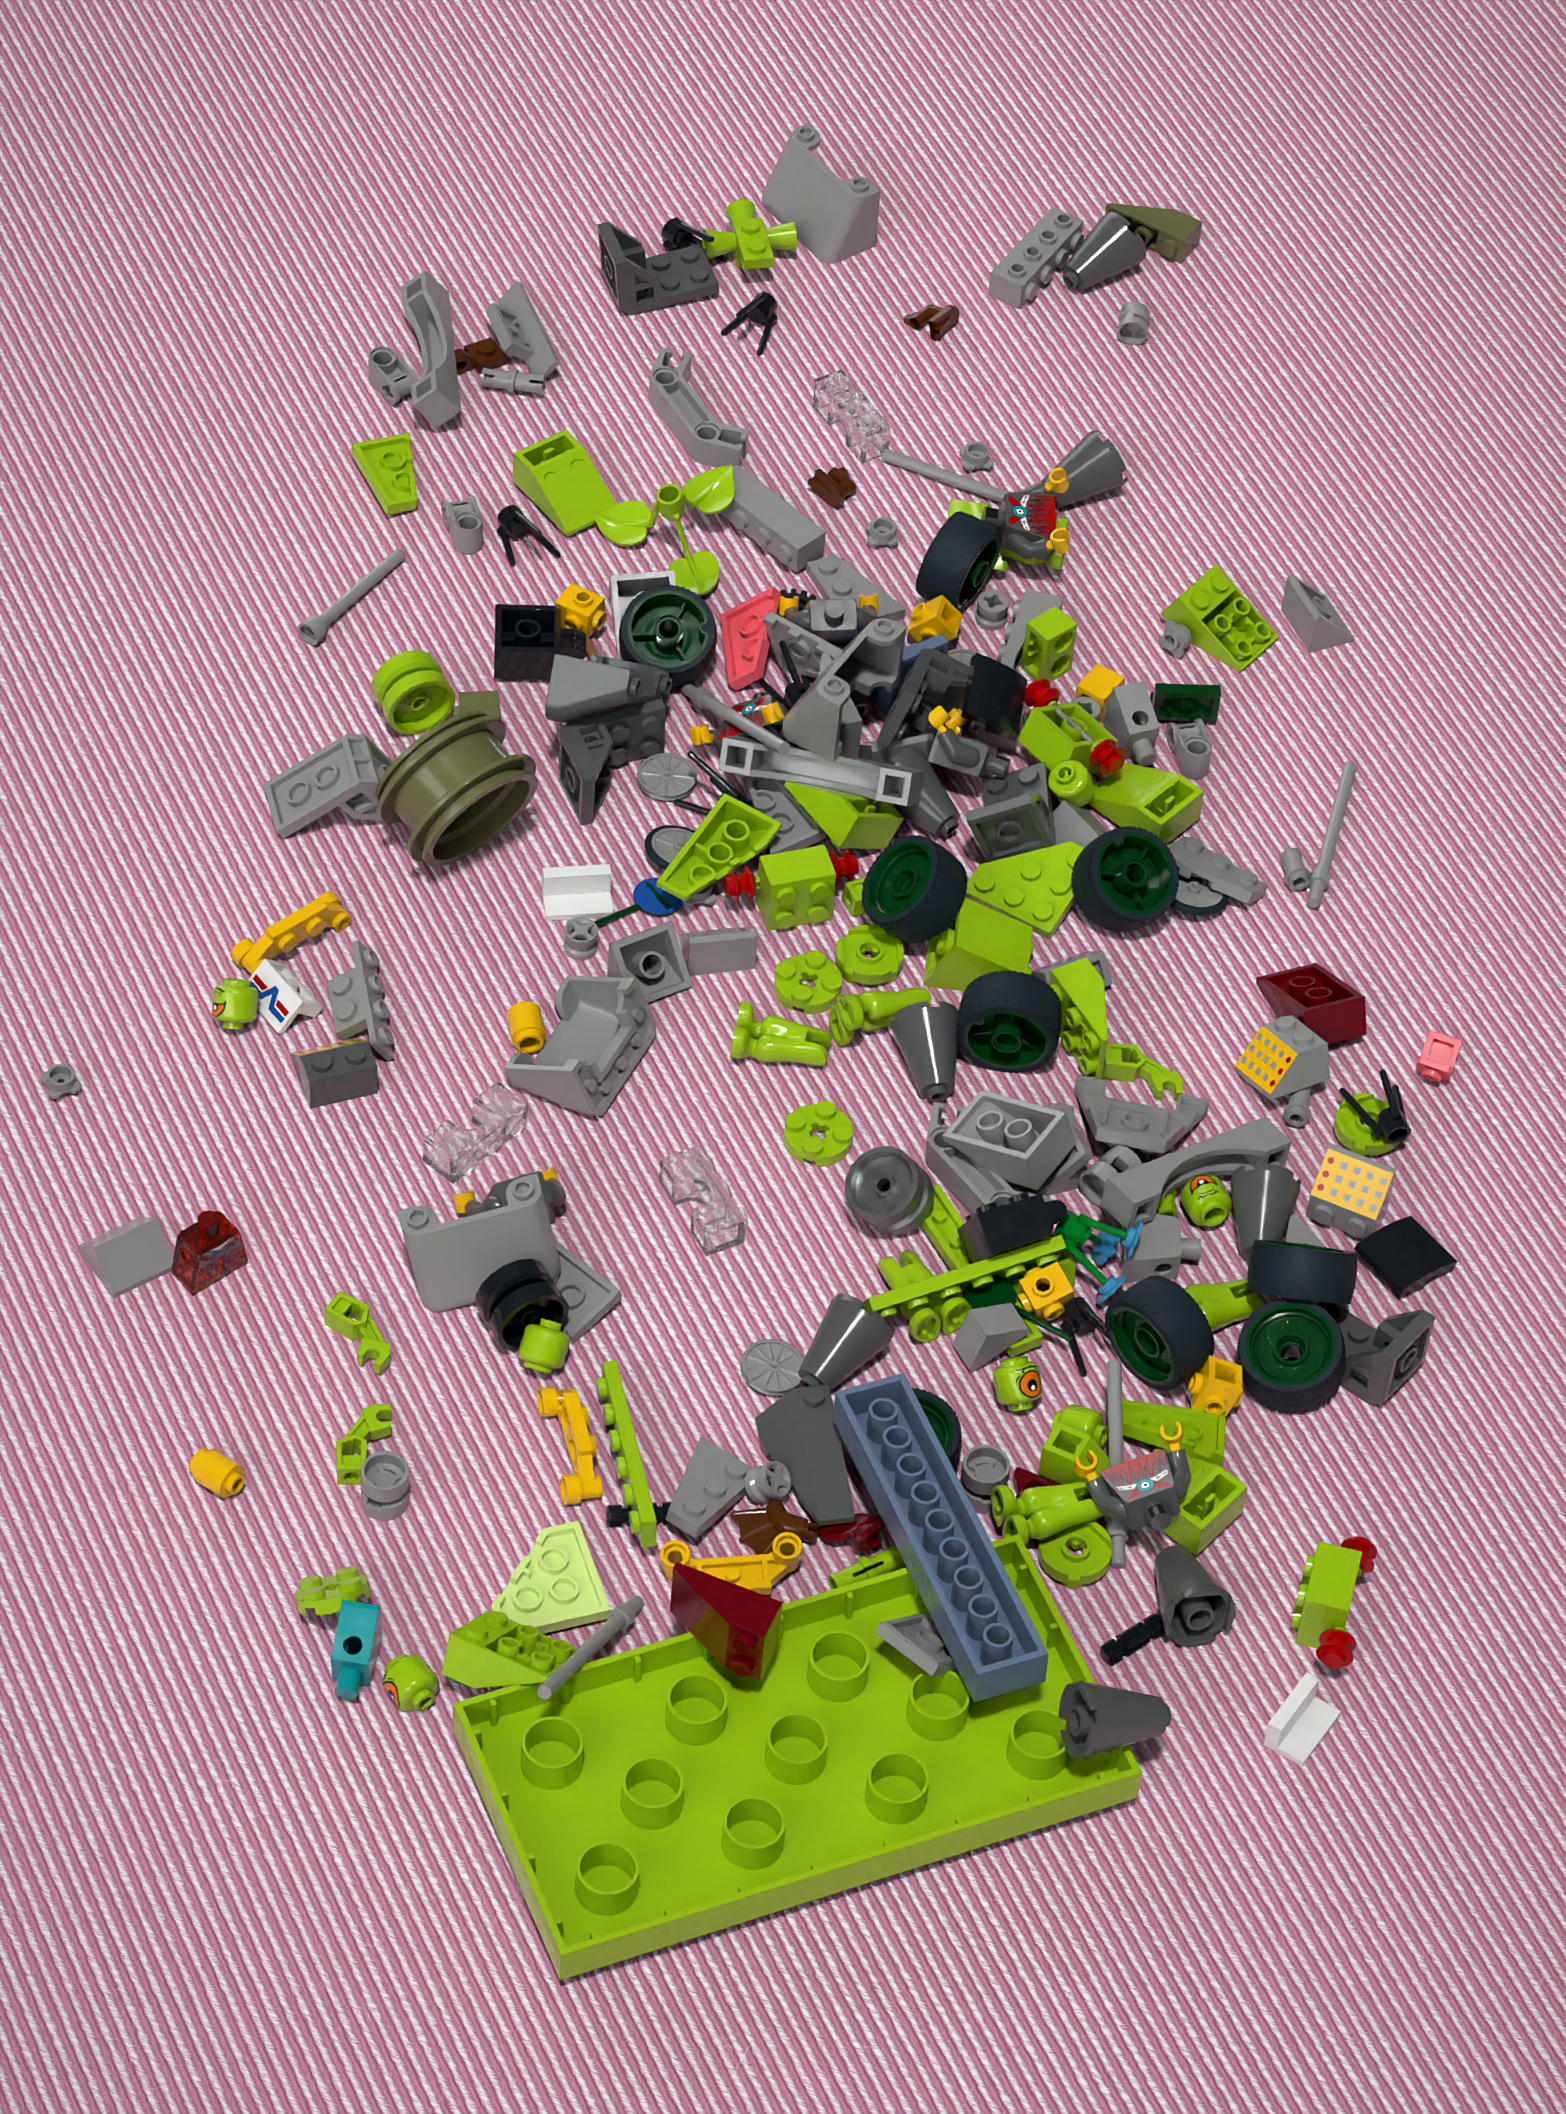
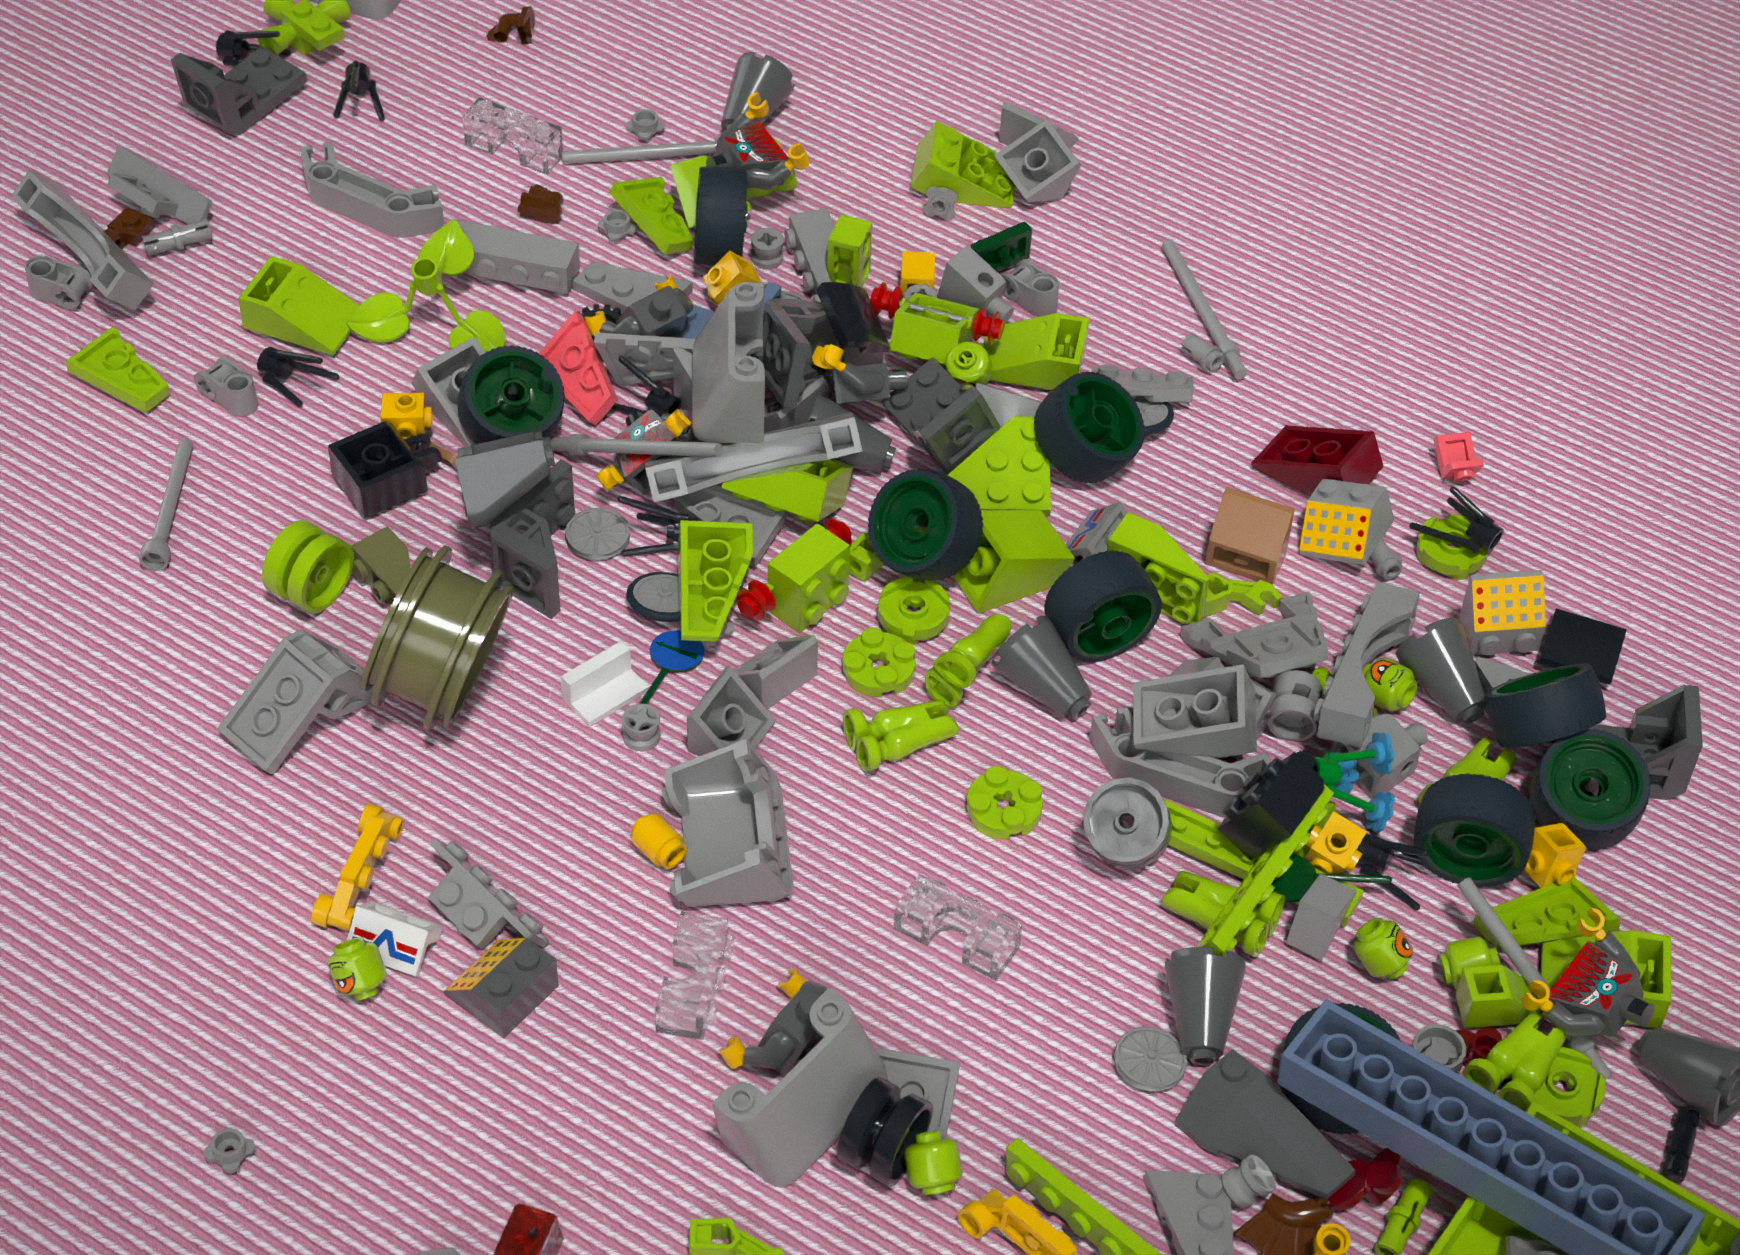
camera: 30 degrees left, 0 degrees up
(915, 529) = (653, 213): none -> lime wing
(1189, 1031) = (1249, 536): none -> medium nougat slope
(1283, 644) = (1039, 164): none -> light grey slope

